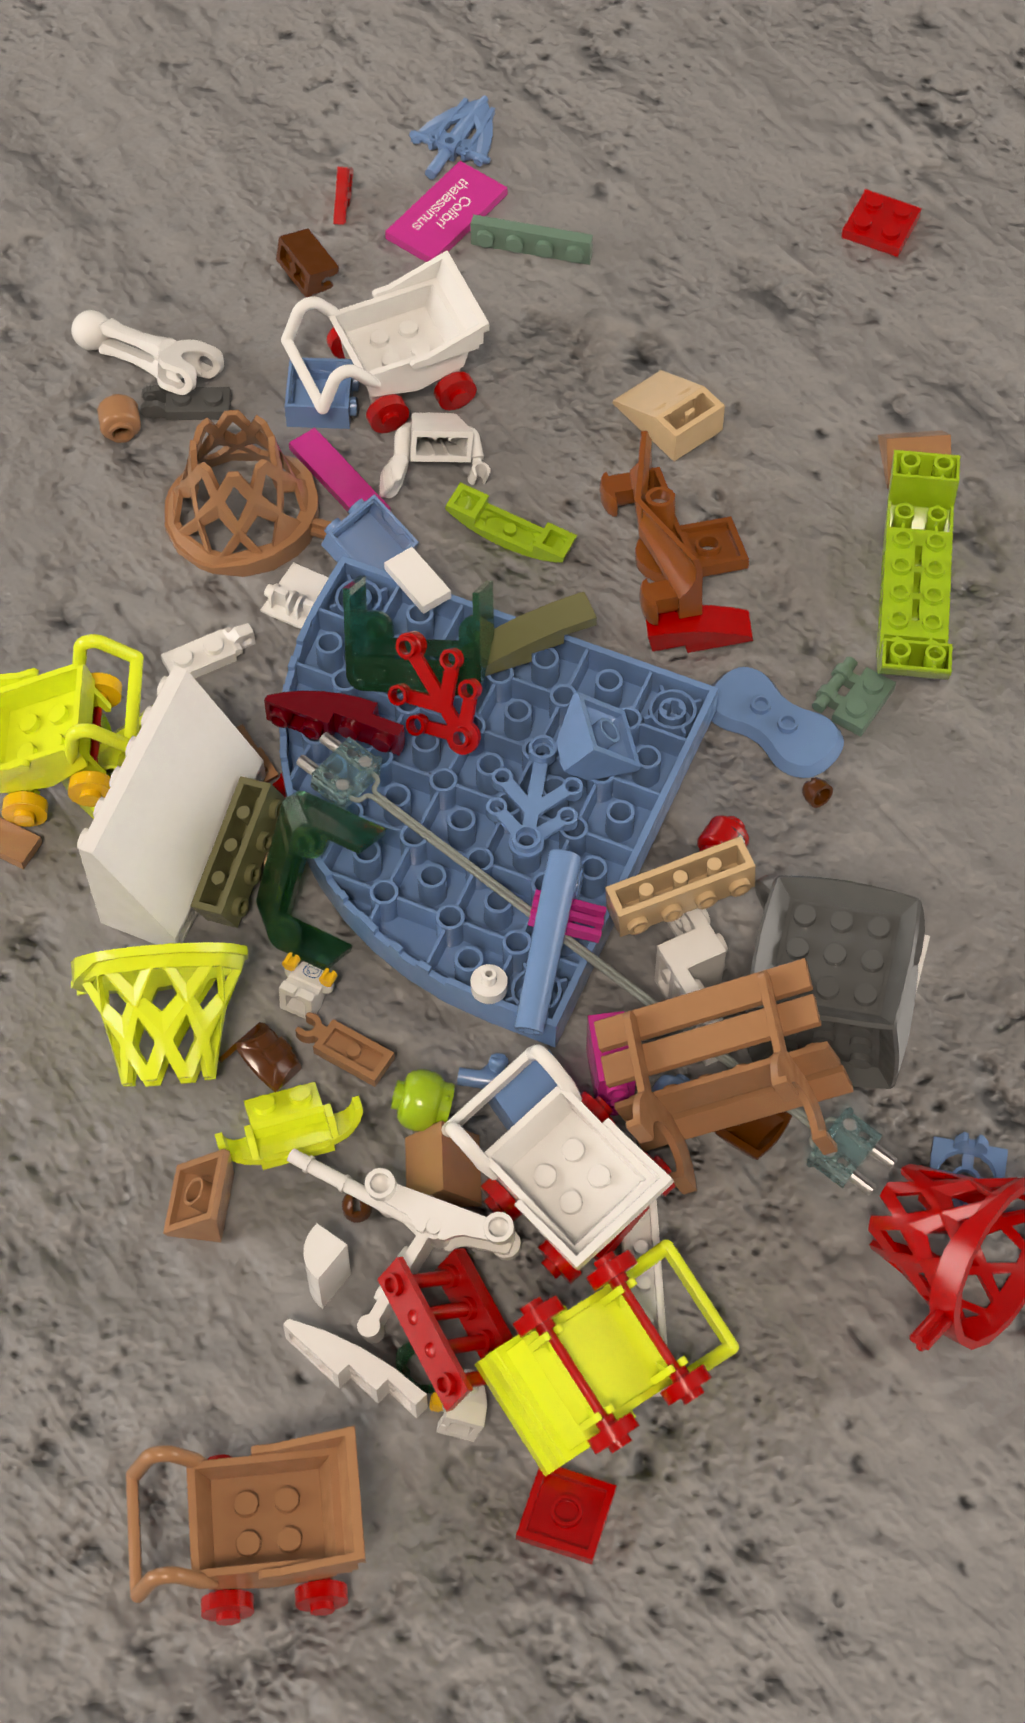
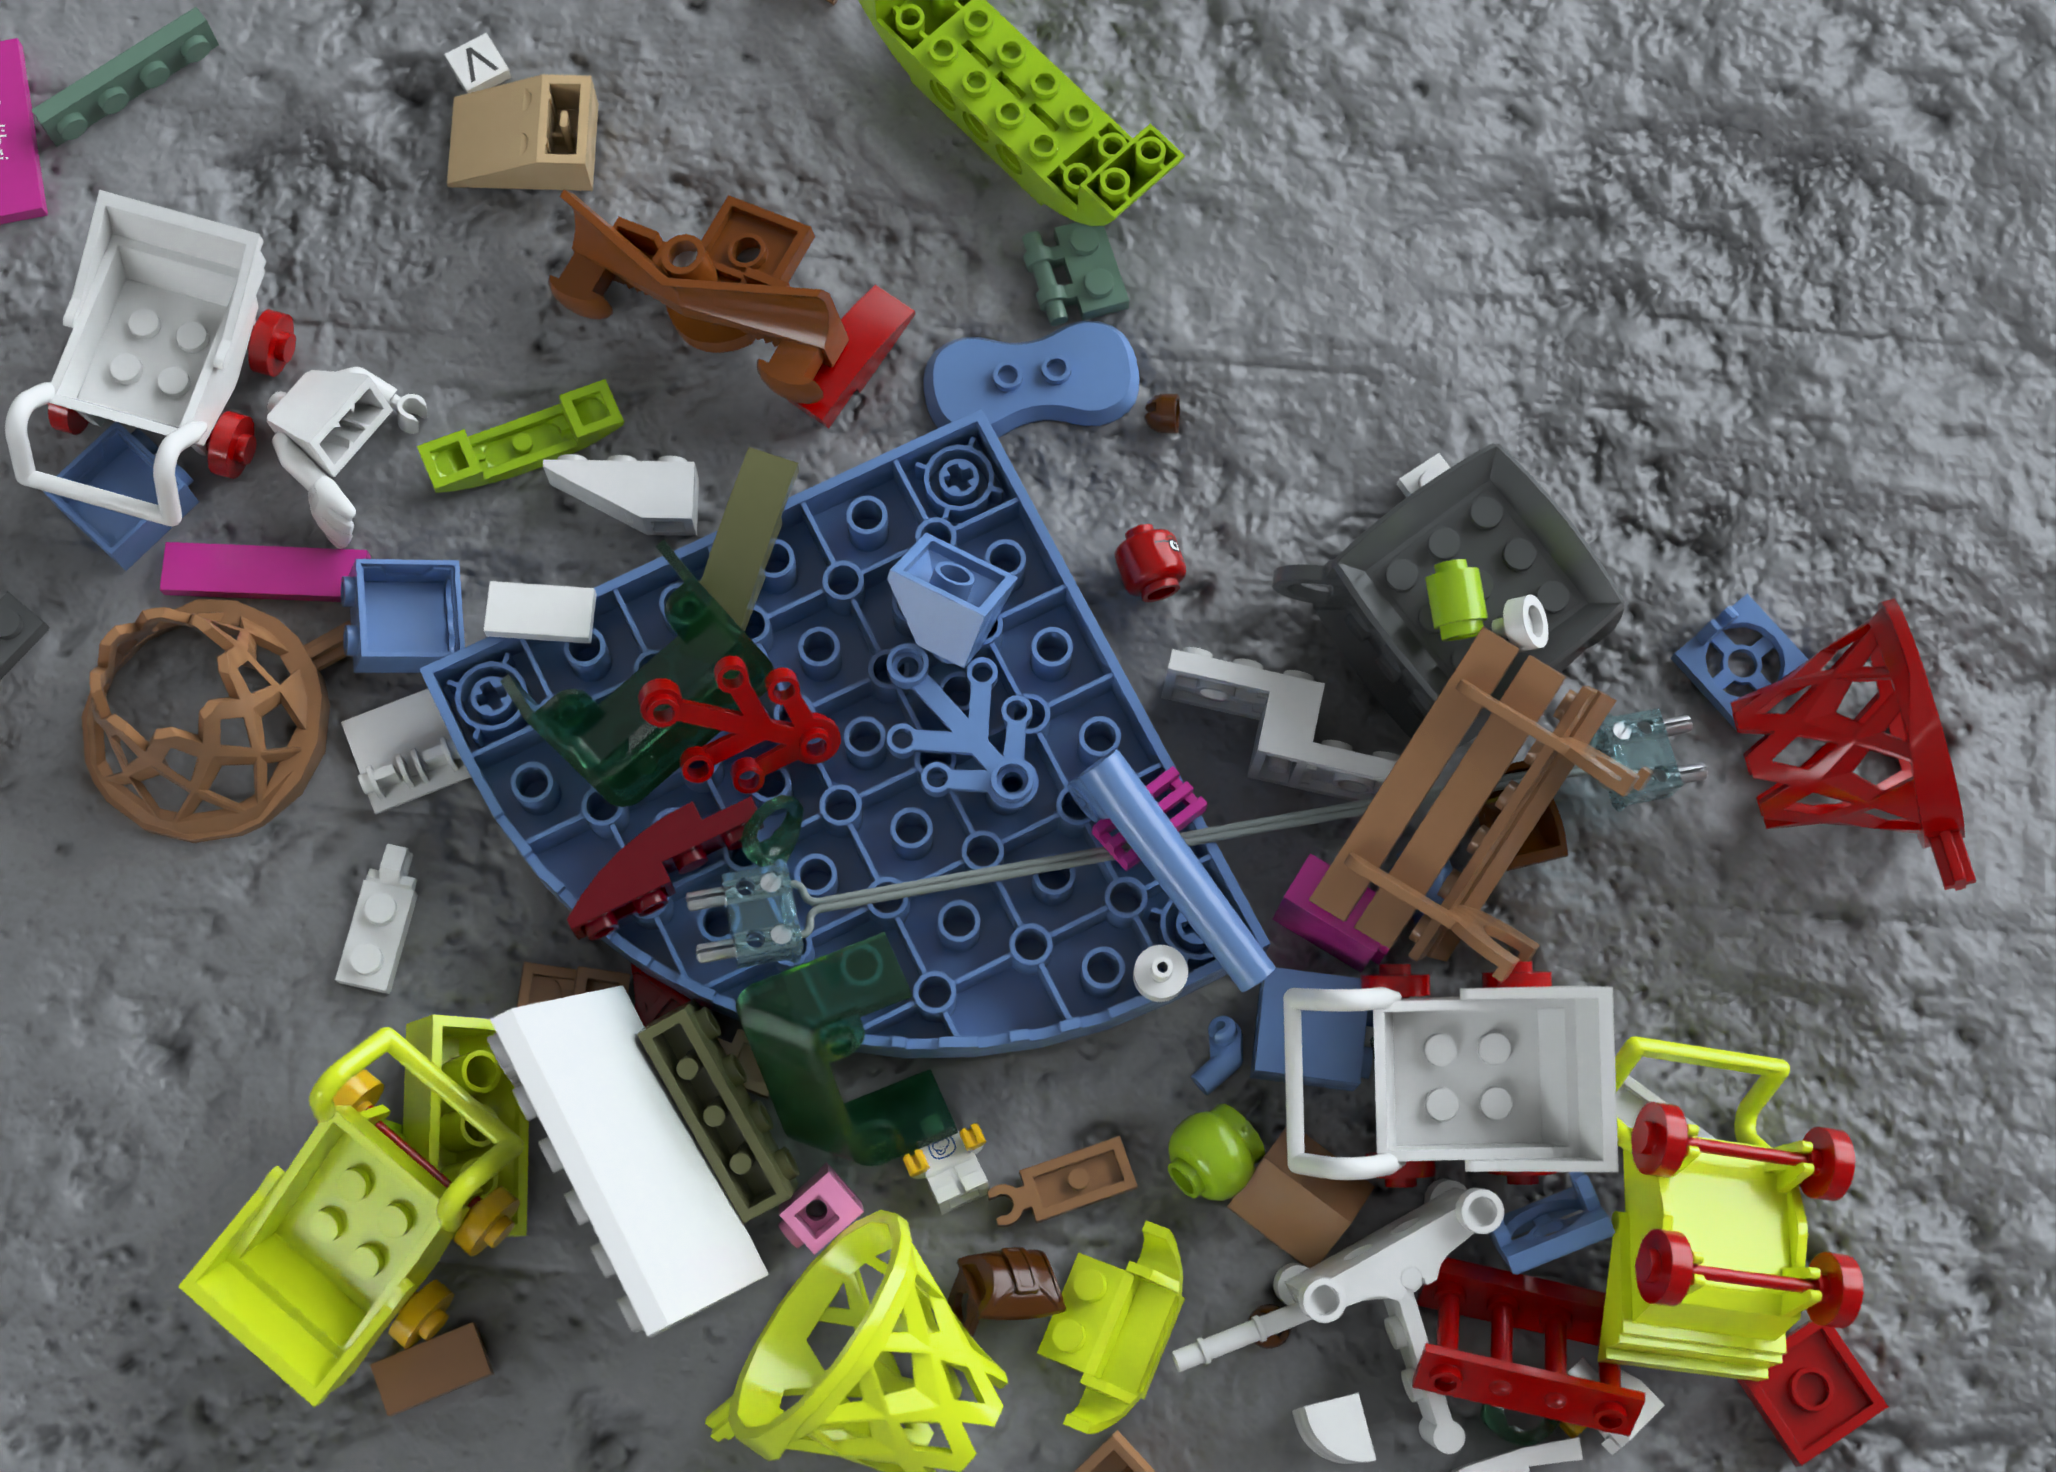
camera: 55 degrees left, 15 degrees up
(240, 933) = (817, 1232): none -> bright pink brick
(394, 767) = (783, 839): none -> piece
(503, 1279) = (1543, 1218): none -> medium blue piece
(527, 582) = (646, 495): none -> white slope
(680, 887) = (1225, 668): tan brick -> none
(689, 366) = (478, 64): none -> white tile
(811, 940) = (1456, 600): none -> lime brick
(831, 983) = (1523, 623): none -> white tile

